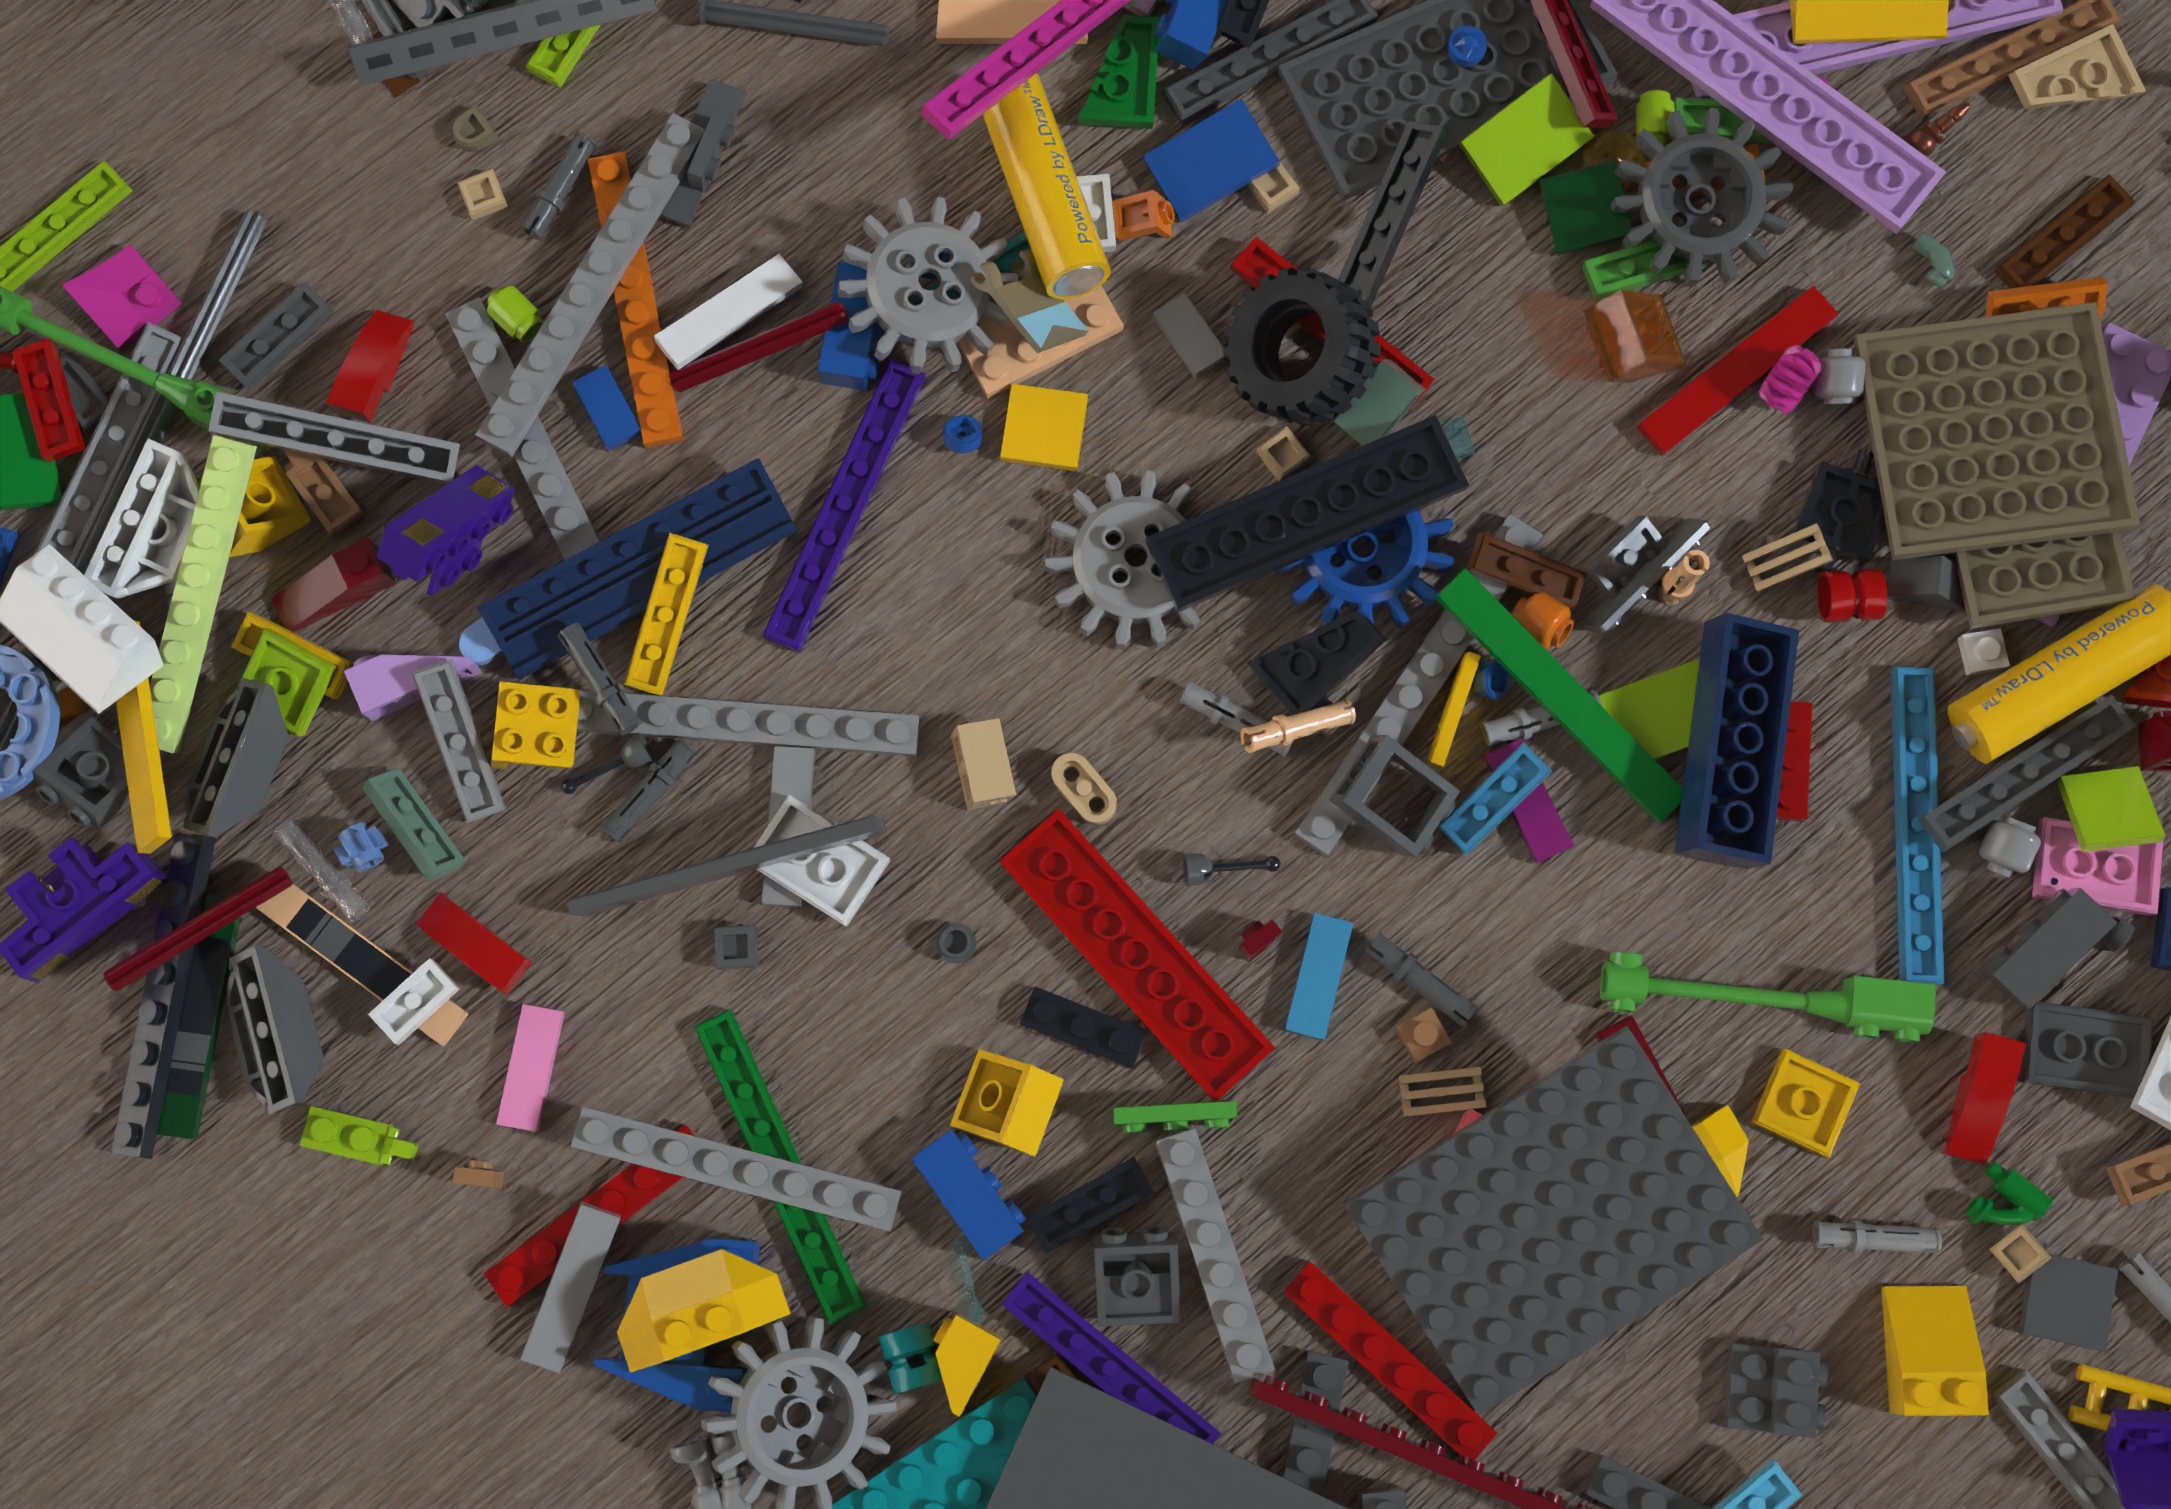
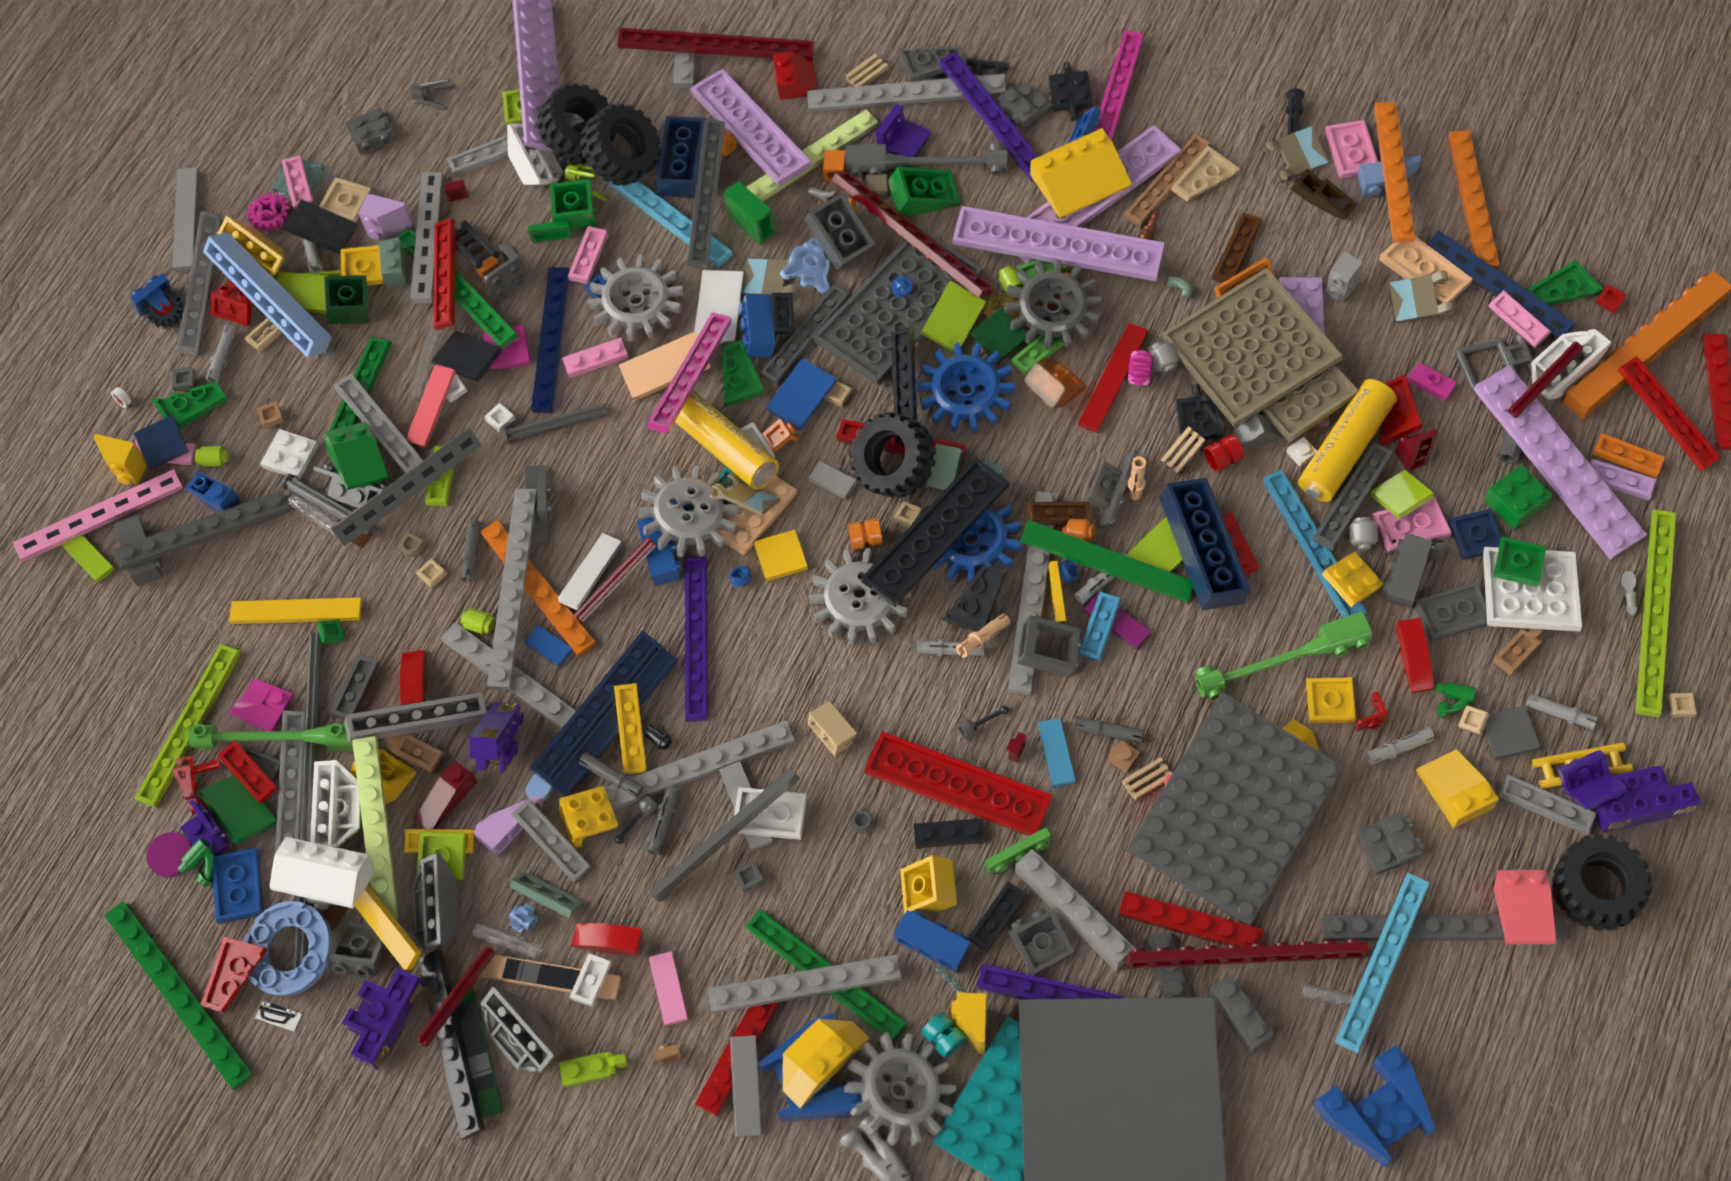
camera: 20 degrees left, 15 degrees down
(245, 158) = (295, 610): none -> yellow tile
(281, 221) = (330, 631): none -> green tile
(704, 645) = (662, 740): none -> black pin
(1084, 789) = (891, 716): tan plate -> none
(1194, 458) = (865, 534): none -> orange wheel
(1518, 263) = (979, 374): none -> blue gear
(1877, 1164) = (1375, 720): none -> red bracket
(1950, 917) = (1352, 579): none -> yellow plate

